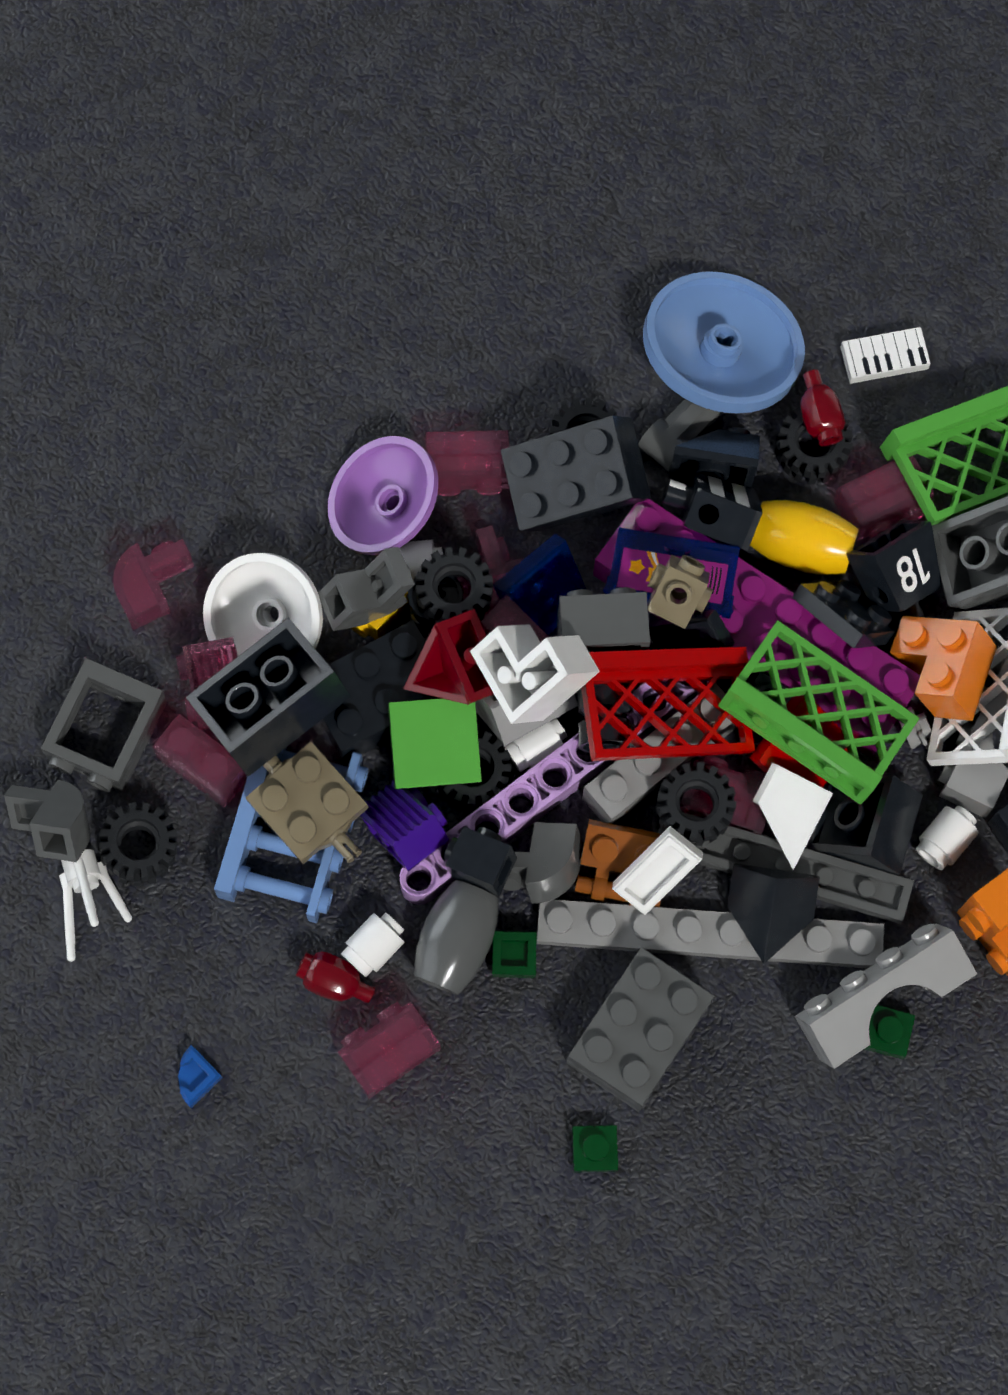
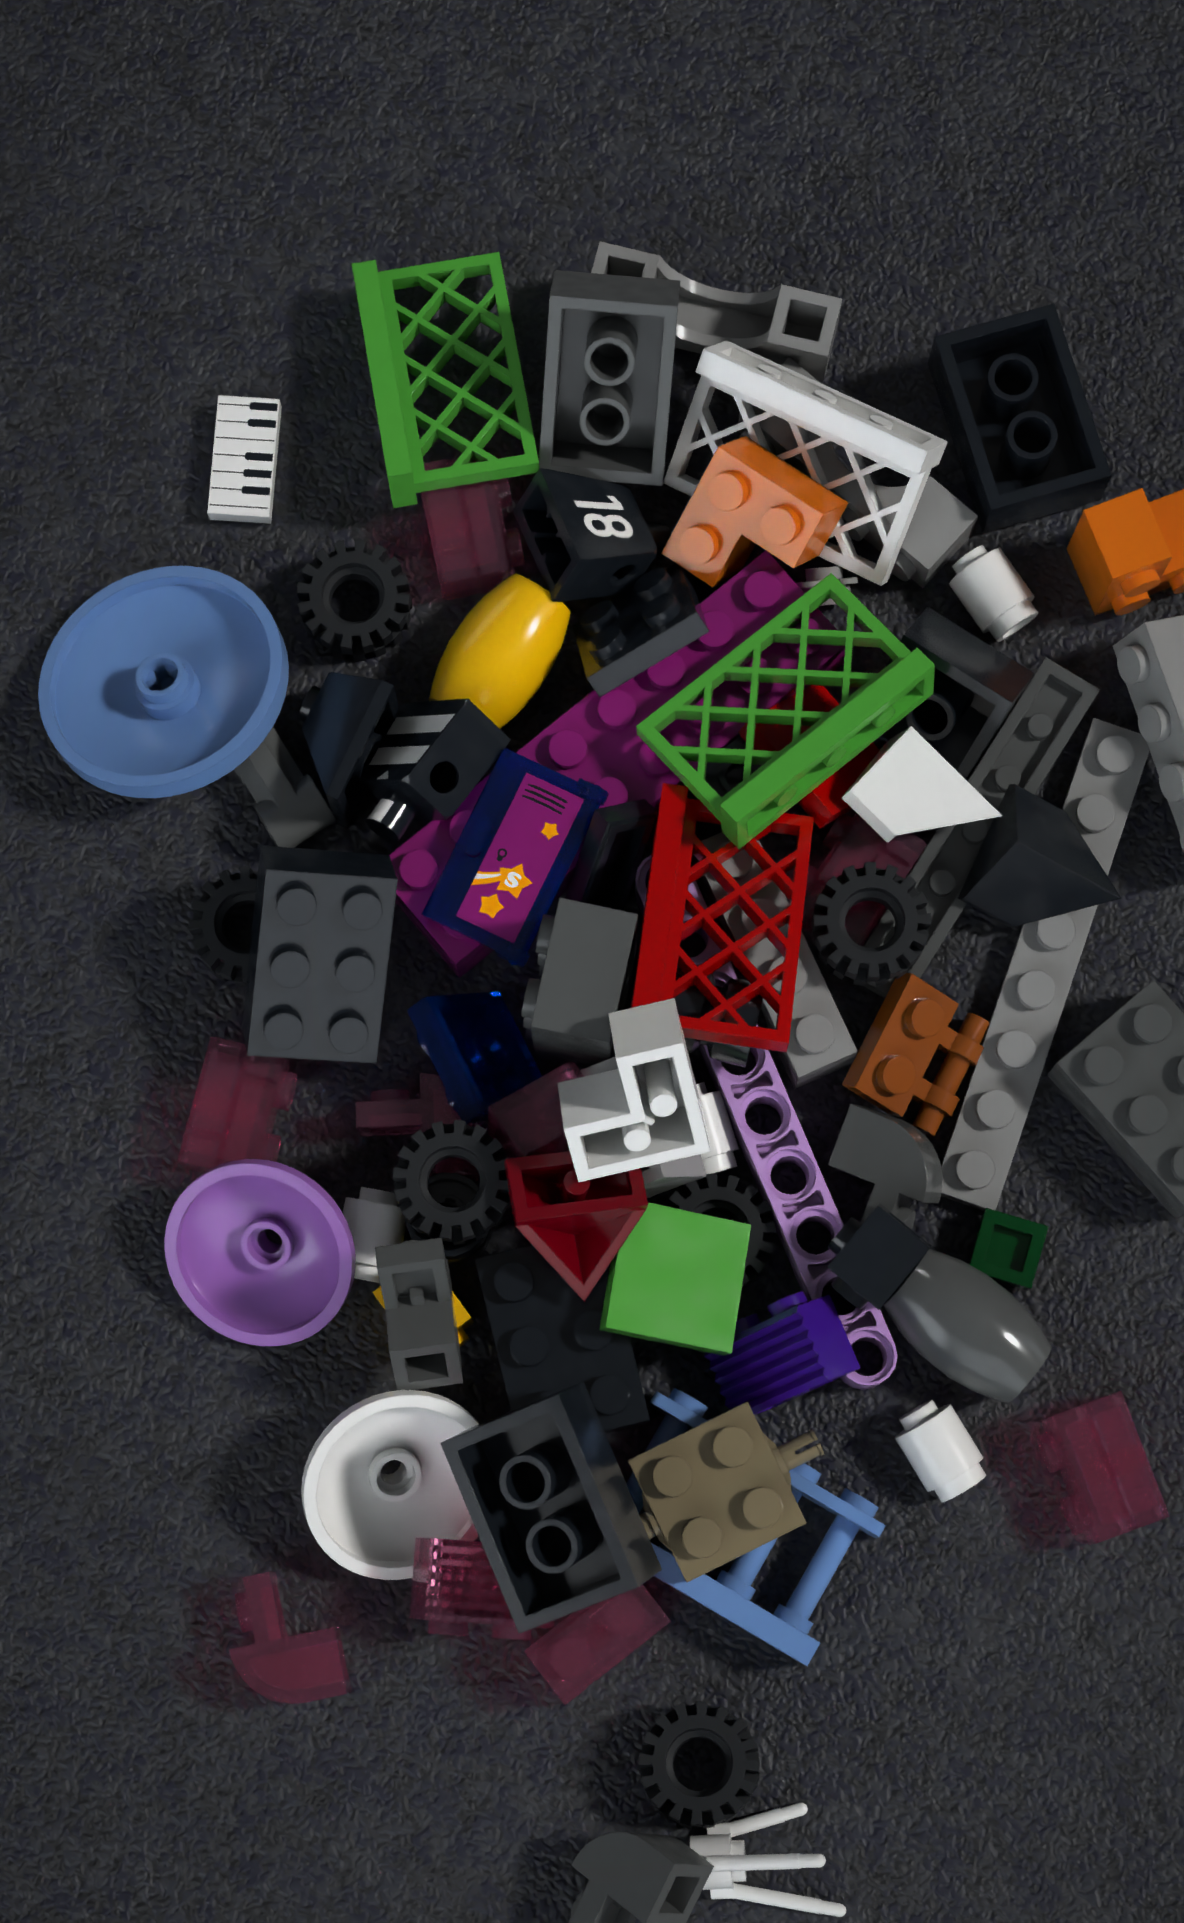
camera: 70 degrees left, 5 degrees up
(119, 686) = (576, 1800): dark grey window -> none
(195, 1076) = (1067, 1764): blue tile -> none
(332, 978) = (974, 1524): dark red plant -> none
(657, 870) = (952, 1007): white tile -> none
(679, 589) = (558, 851): dark tan brick -> none
(821, 410) = (319, 570): dark red plant -> none

